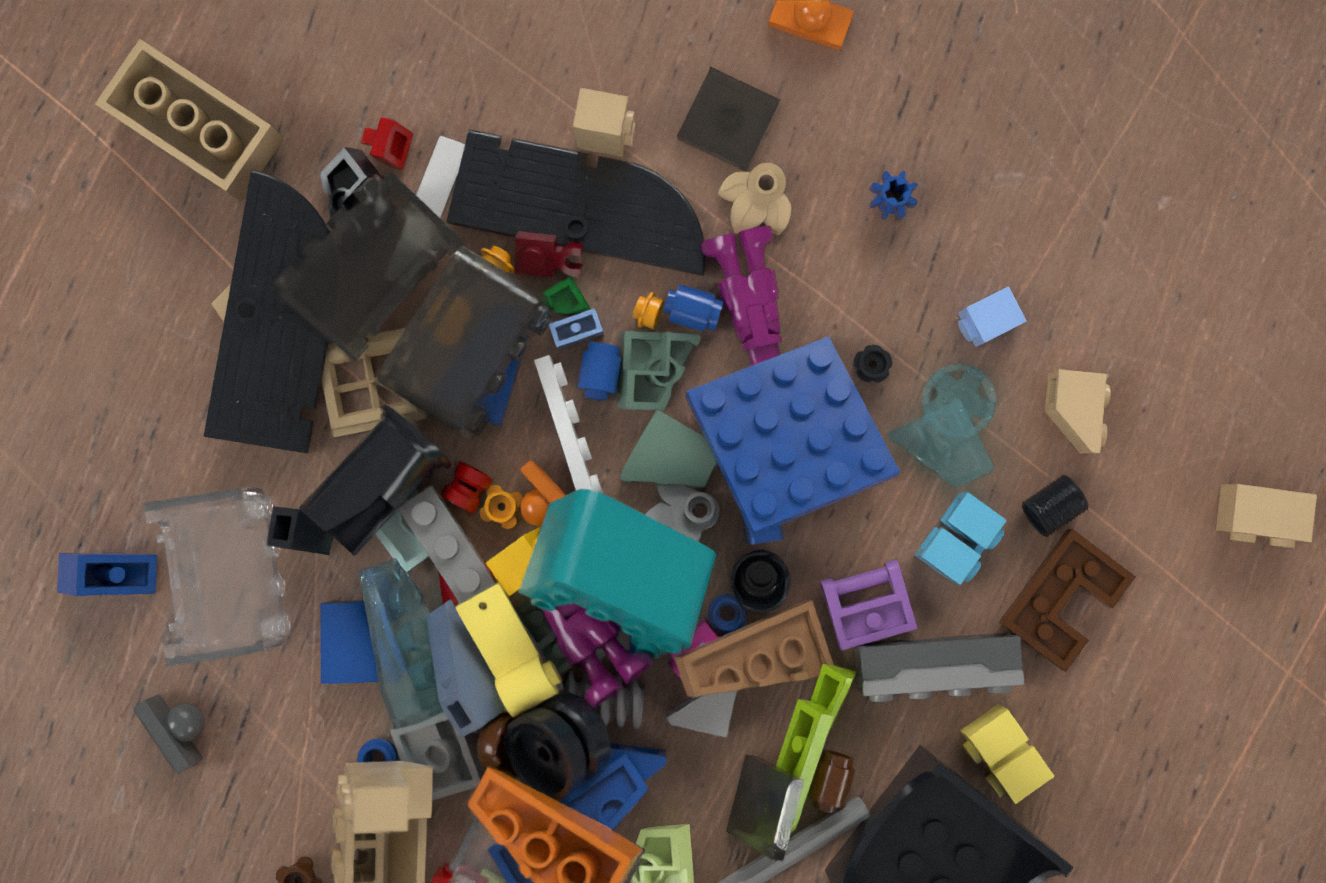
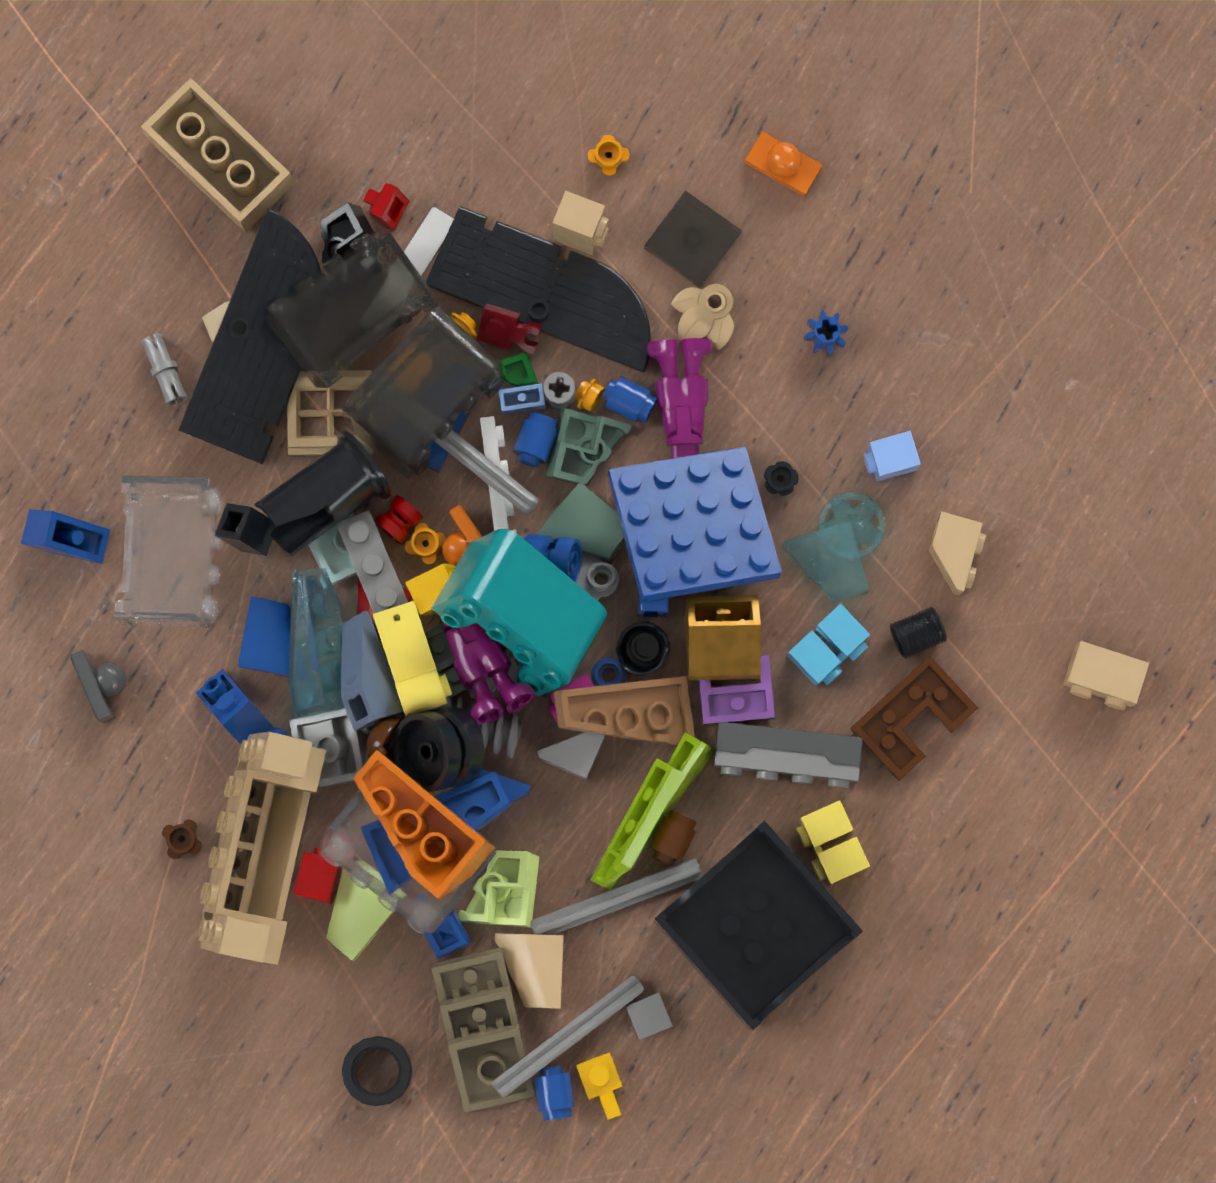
camera: 10 degrees right, 5 degrees down
(180, 369) = (164, 369): none -> light grey pin
(326, 730) = (232, 707): none -> blue slope
(556, 420) = (488, 472): none -> light grey axle
(605, 305) = (551, 384): none -> light grey bush
(619, 32) = (610, 145): none -> light orange plate
(651, 496) = (562, 552): none -> blue wheel
(764, 807) = (608, 845): clear smoke plate -> none
(846, 554) = (723, 637): none -> pearl gold slope

